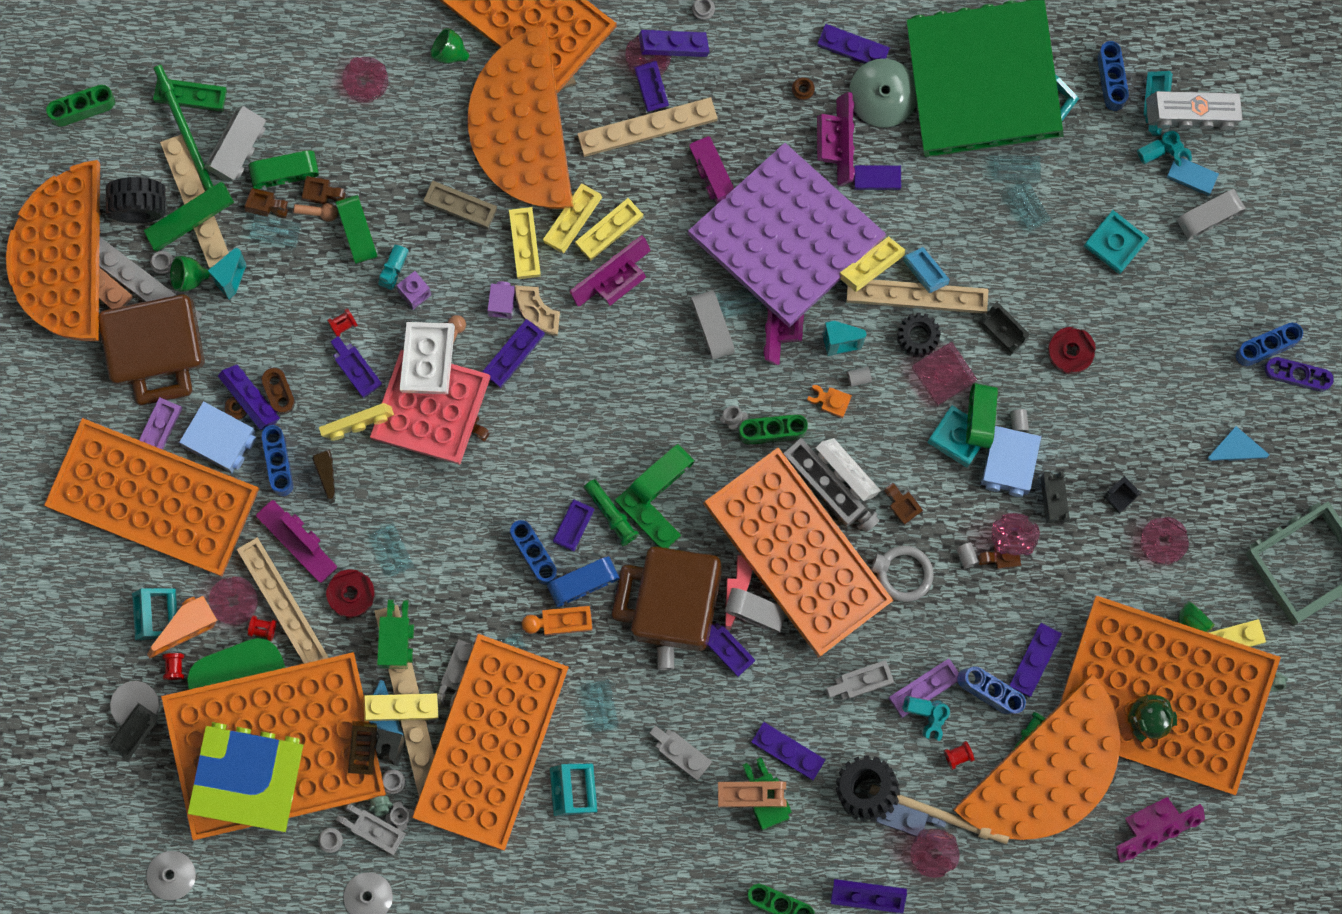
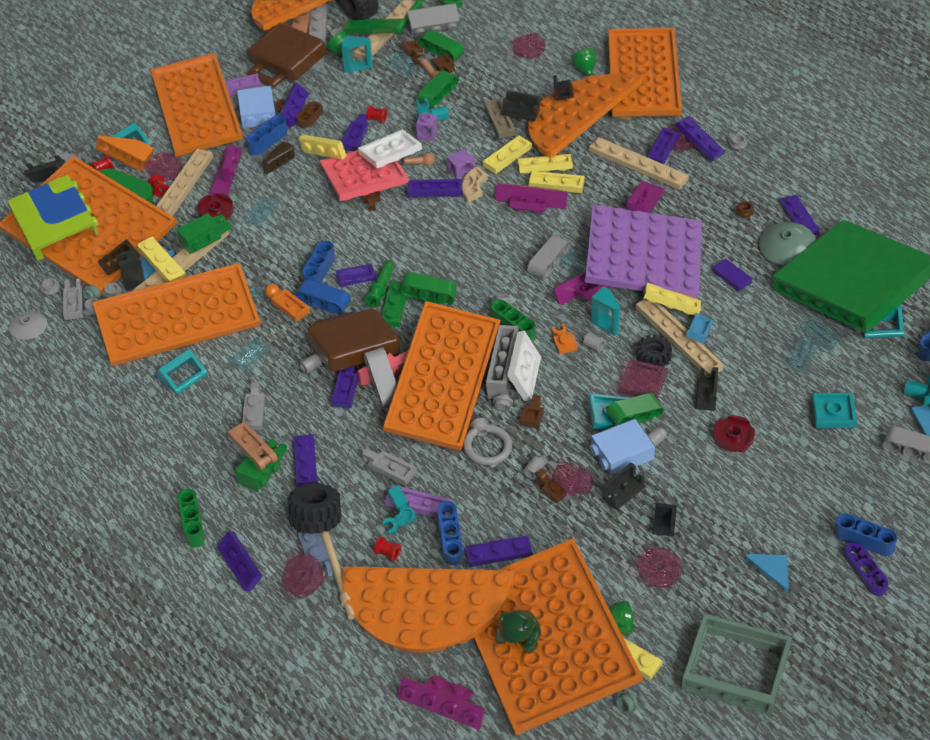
camera: 60 degrees right, 30 degrees down
(474, 174) = (521, 105): none -> pearl dark grey hinge
(488, 112) = (563, 89): none -> black panel
(836, 139) = (730, 238): magenta bracket -> none

